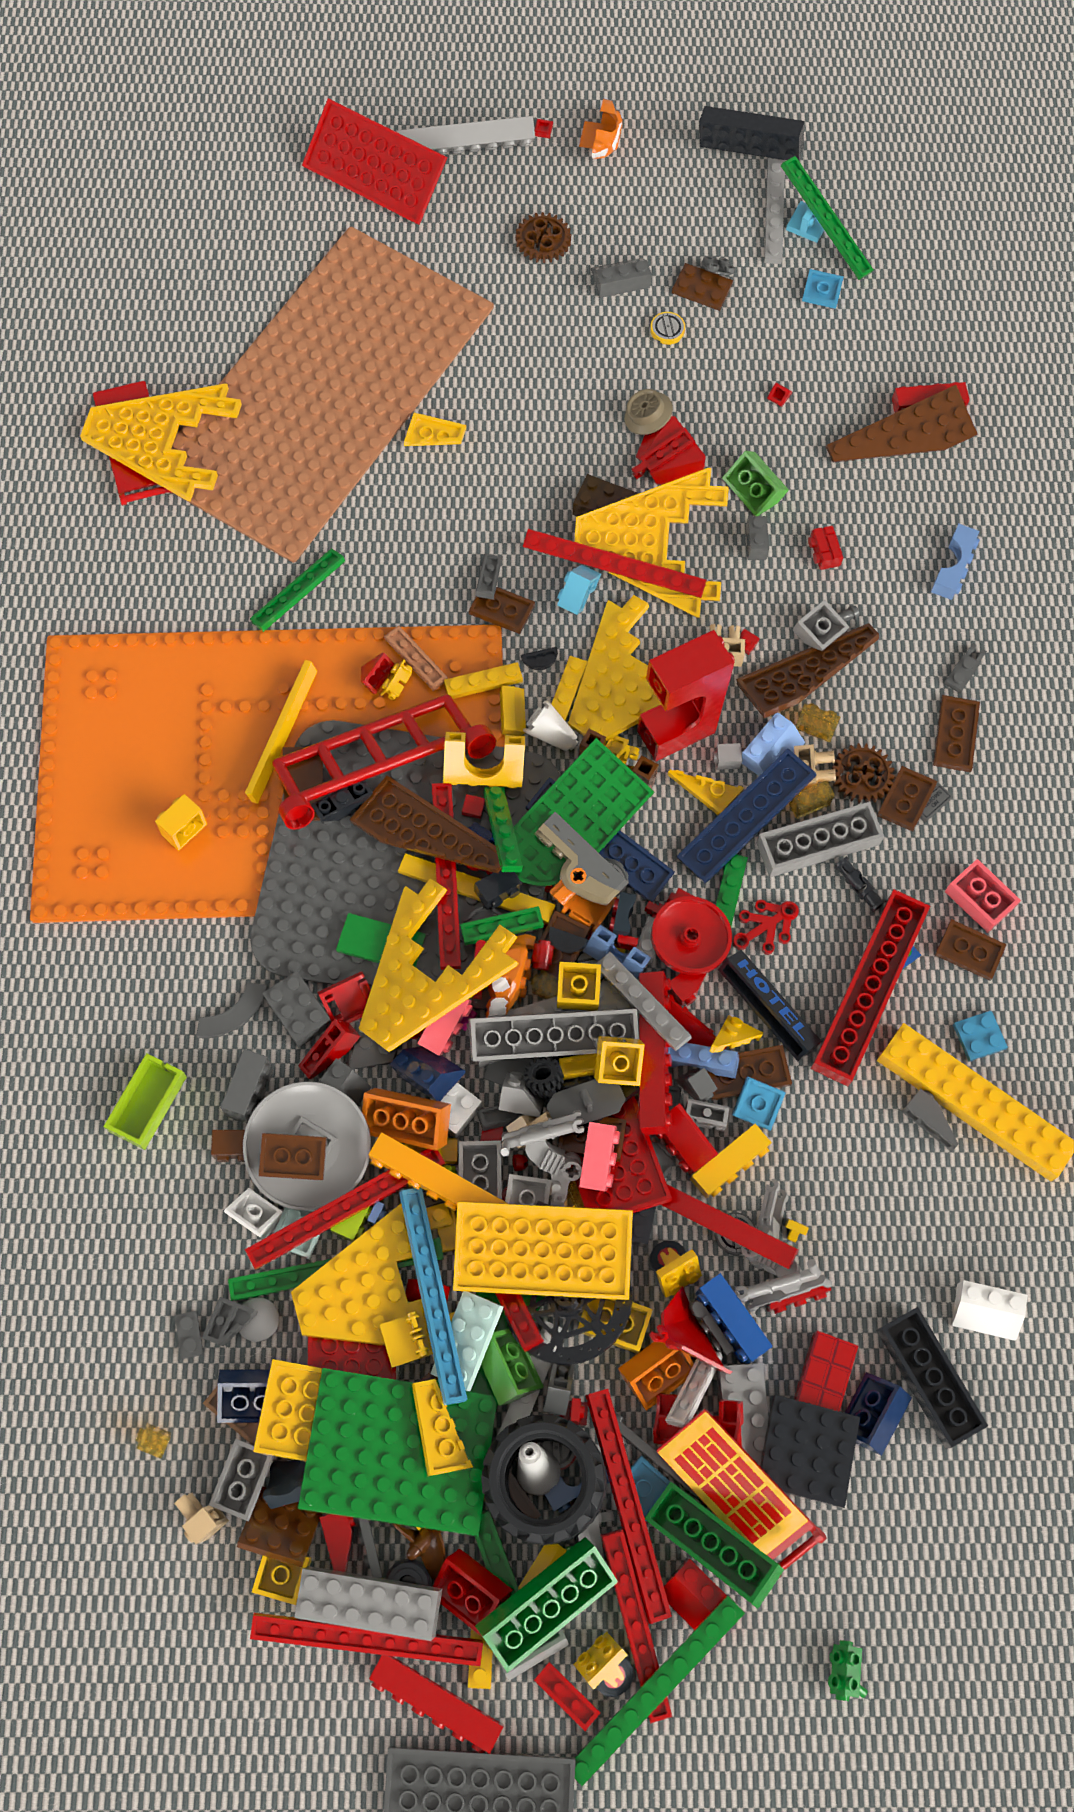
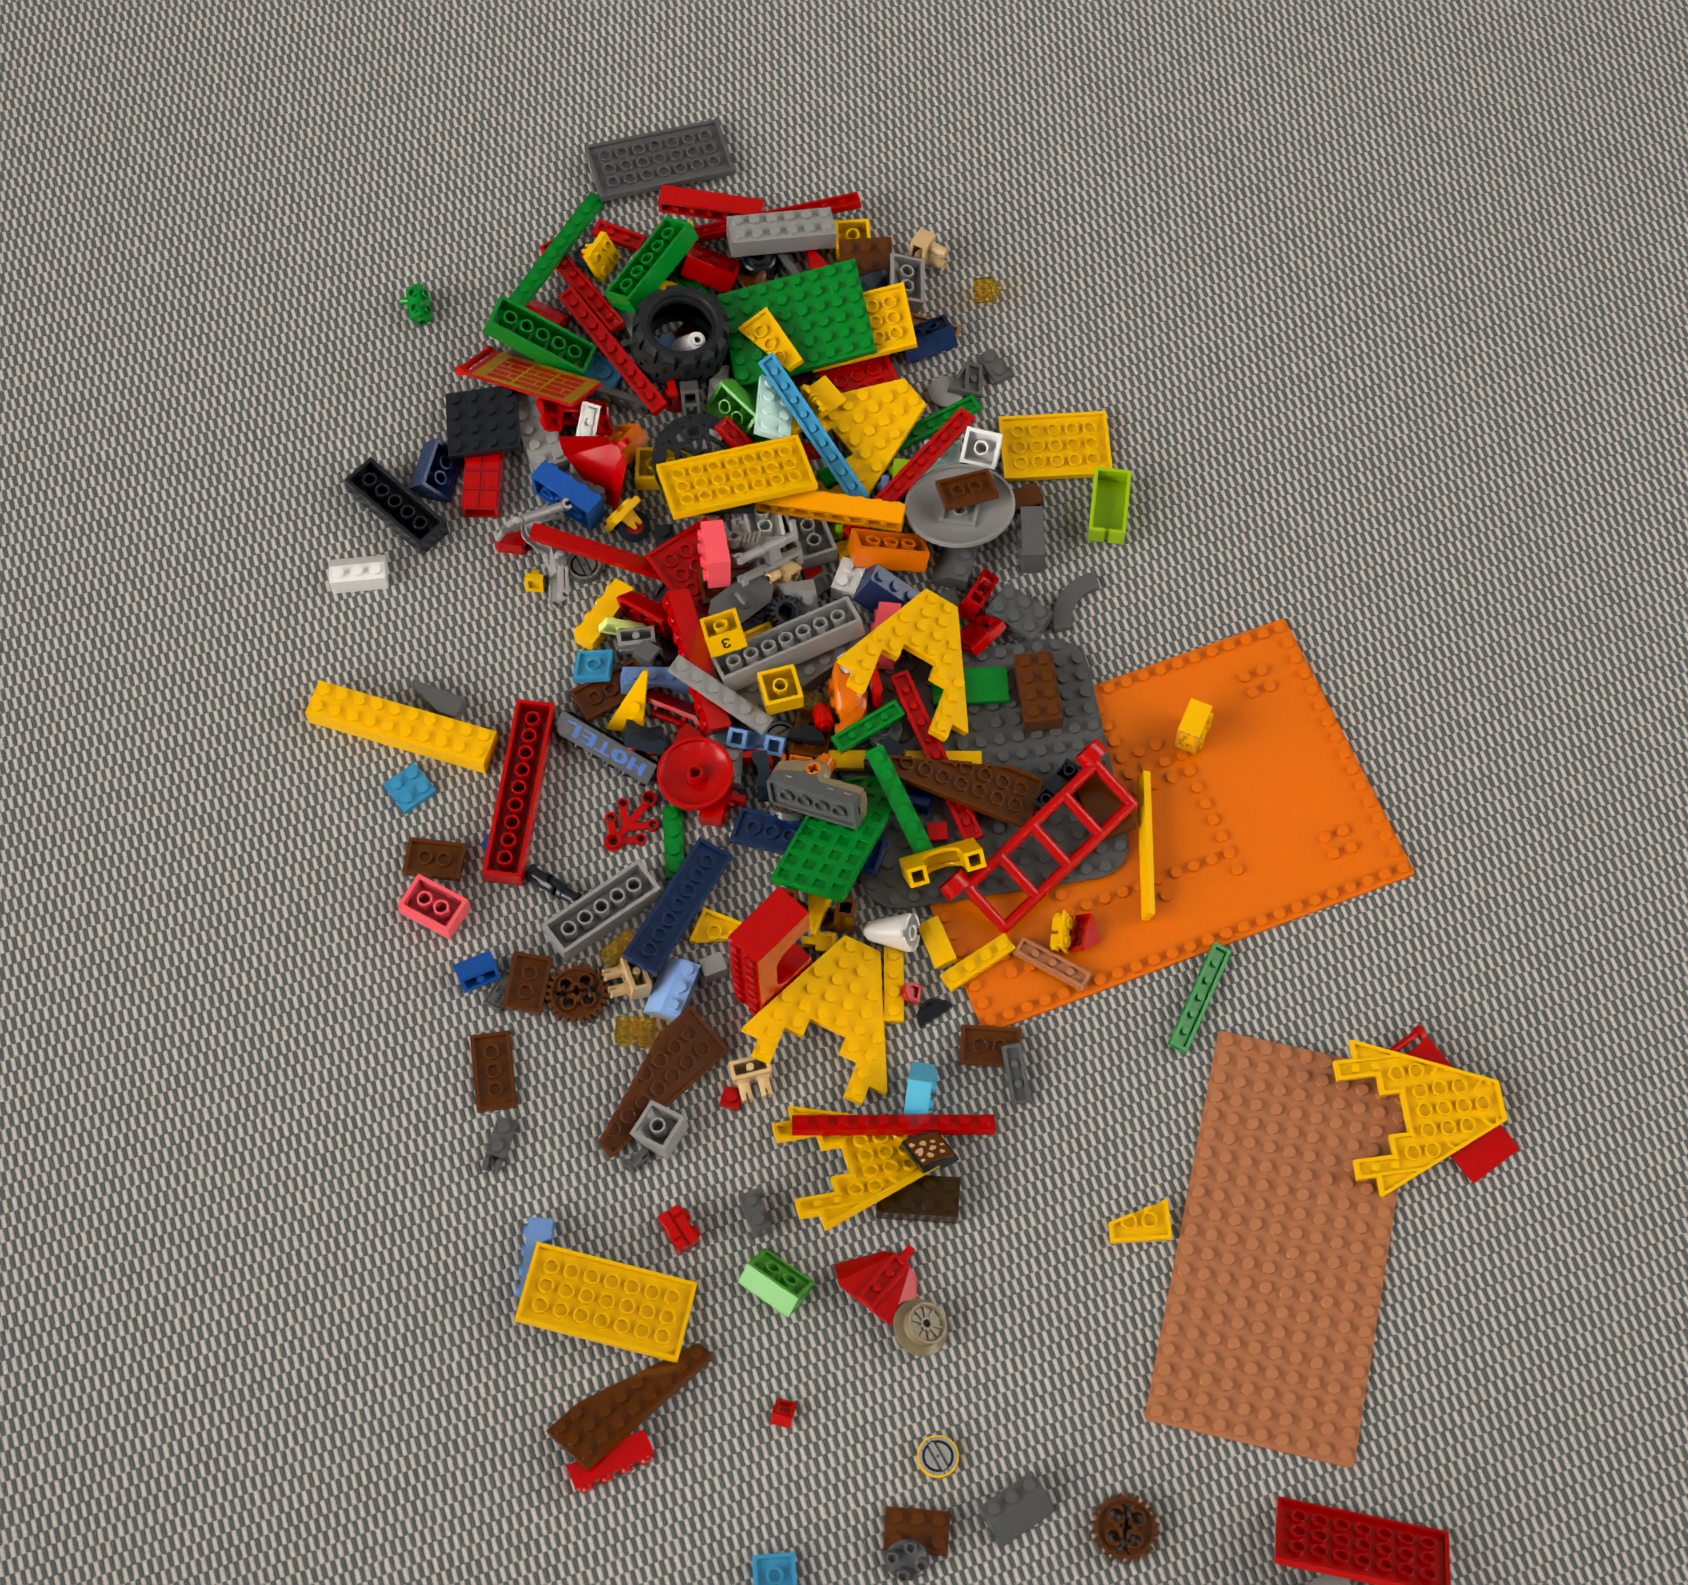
camera: 165 degrees right, 5 degrees down
(167, 1202) = (1054, 445): none -> yellow plate
(316, 909) = (1037, 691): none -> reddish brown brick
(553, 677) = (911, 992): none -> red tile
(593, 519) = (929, 1151): none -> slope
(727, 1132) = (611, 624): none -> yellowish green hinge
(731, 995) = (644, 738): none -> black brick
(906, 504) = (606, 1302): none -> yellow plate
(953, 821) = (477, 971): none -> blue brick

